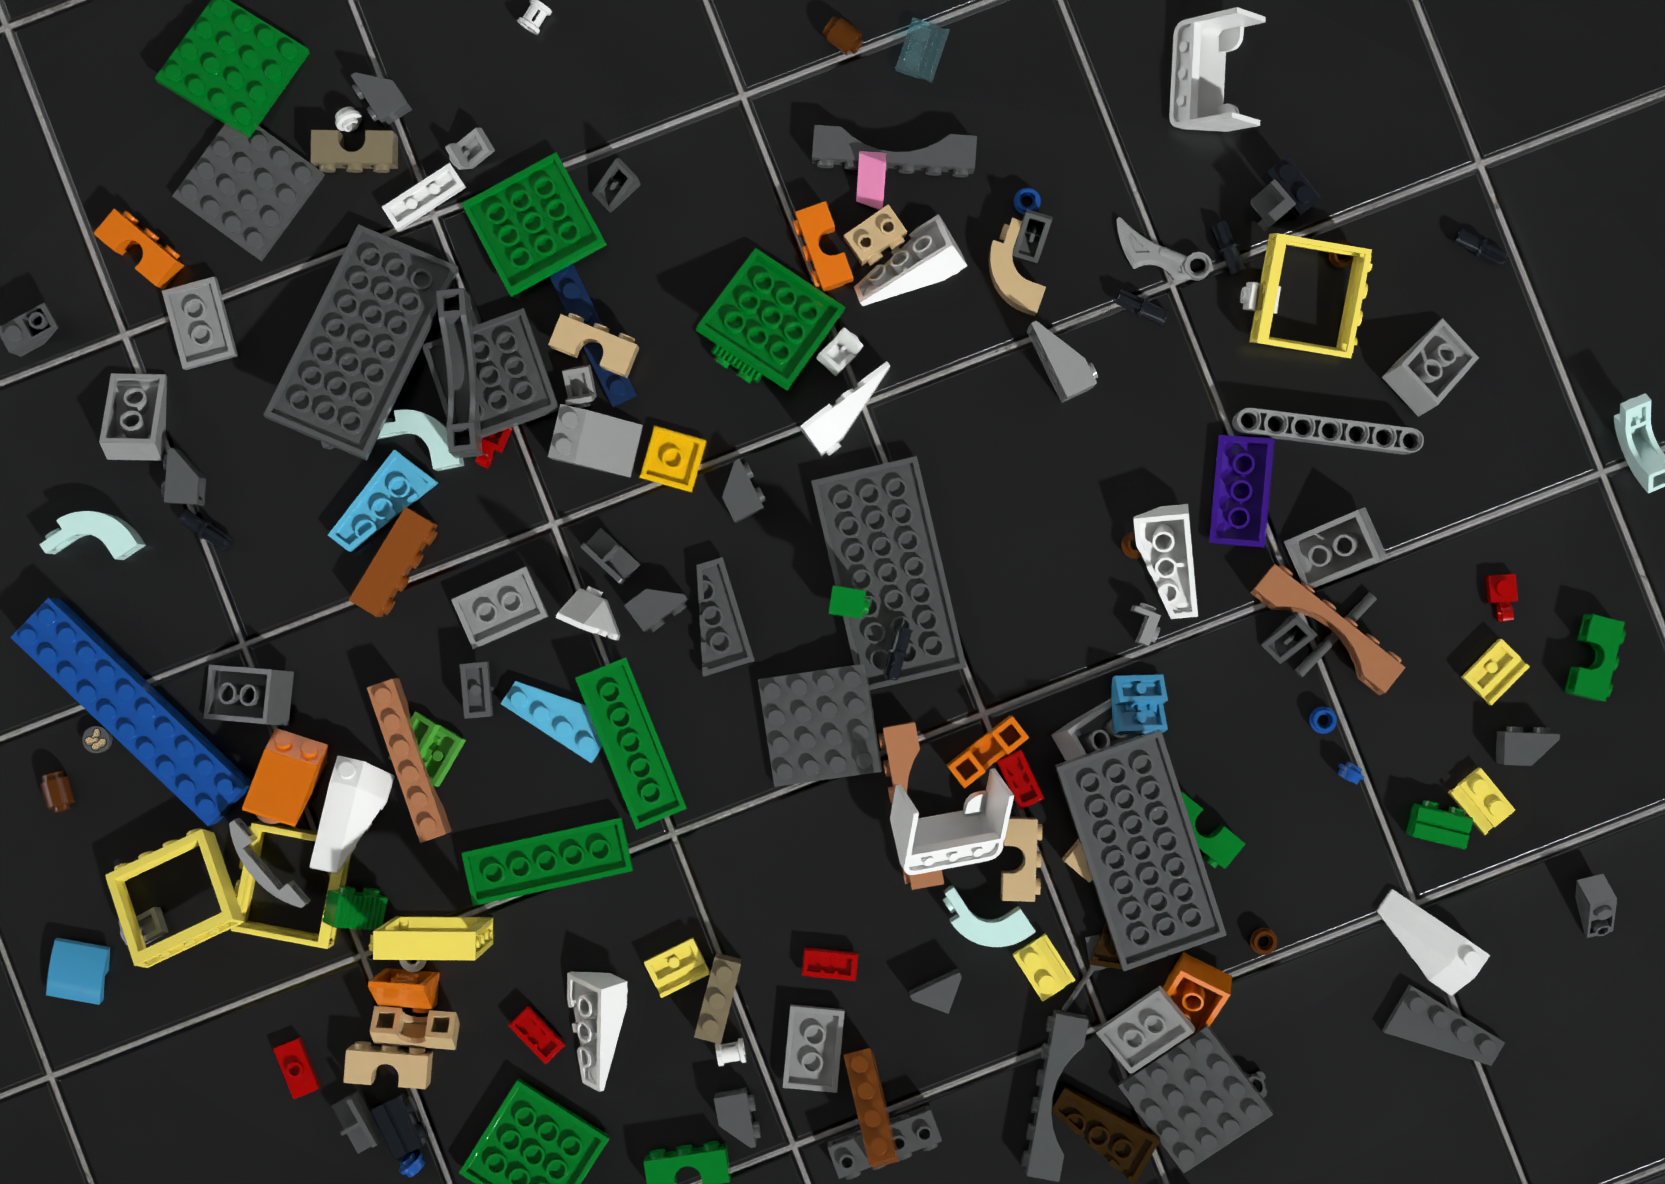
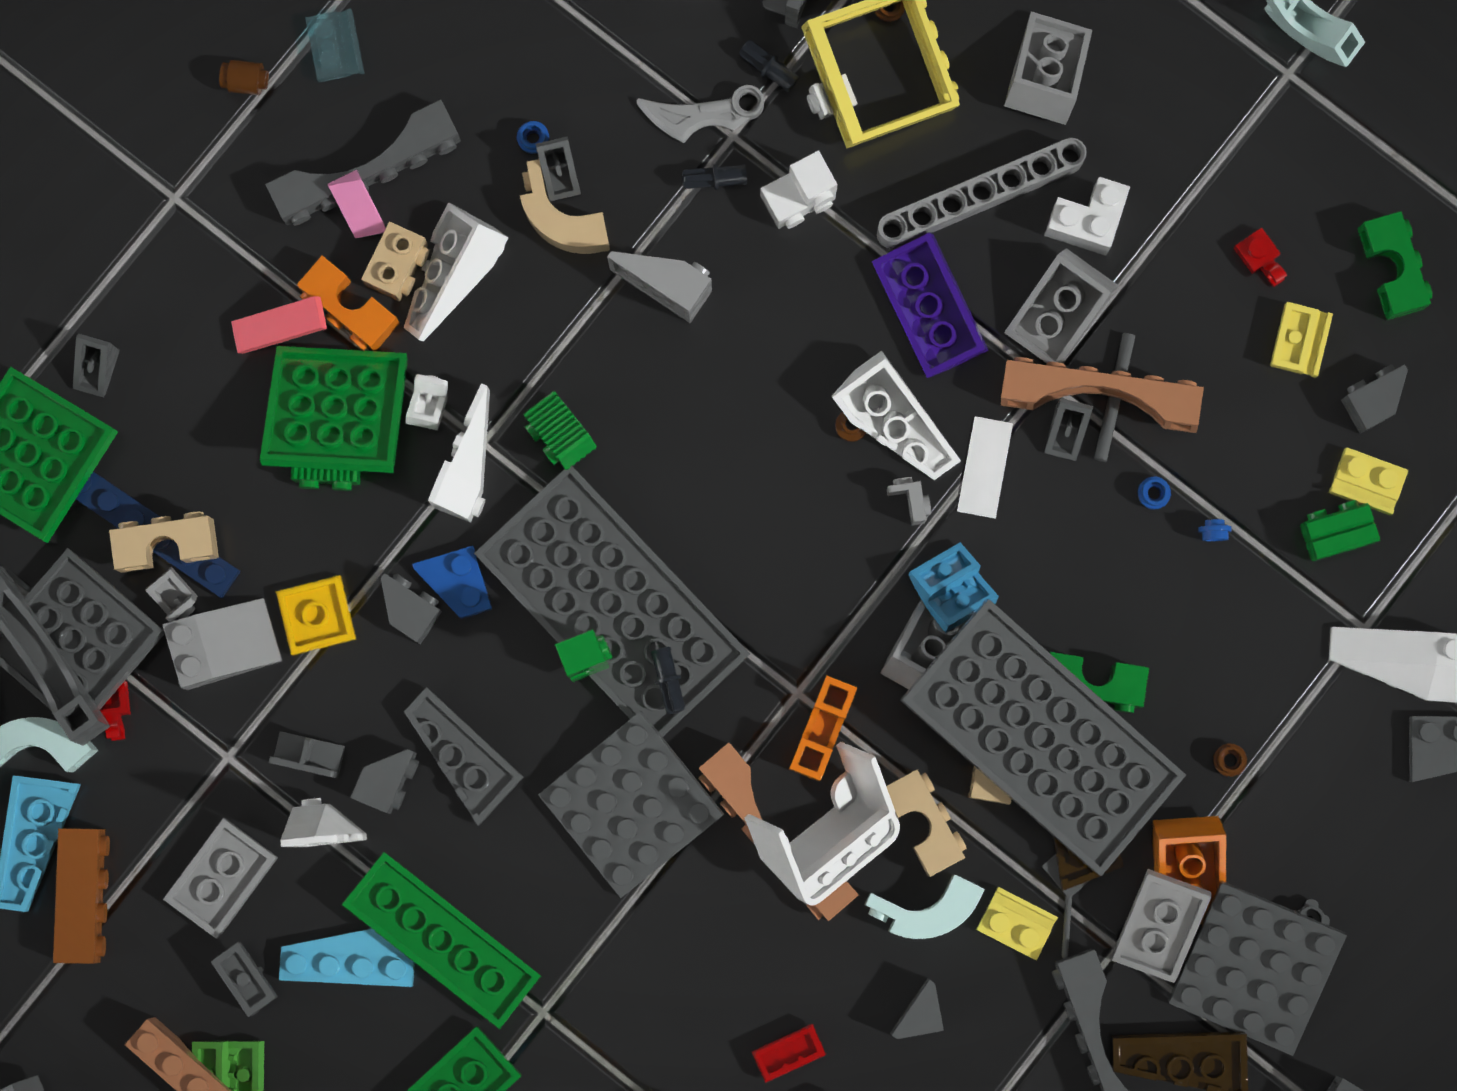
camera: 30 degrees left, 5 degrees down
(765, 233) = (279, 324): none -> coral tile
(787, 493) = (457, 581): none -> blue wing
(923, 428) = (559, 430): none -> green brick
(1020, 779) = (875, 739): red plate -> none
(1201, 354) = (801, 191): none -> white brick
(1212, 630) = (985, 467): none -> white sticker
(1393, 501) = (1090, 225): none -> white brick

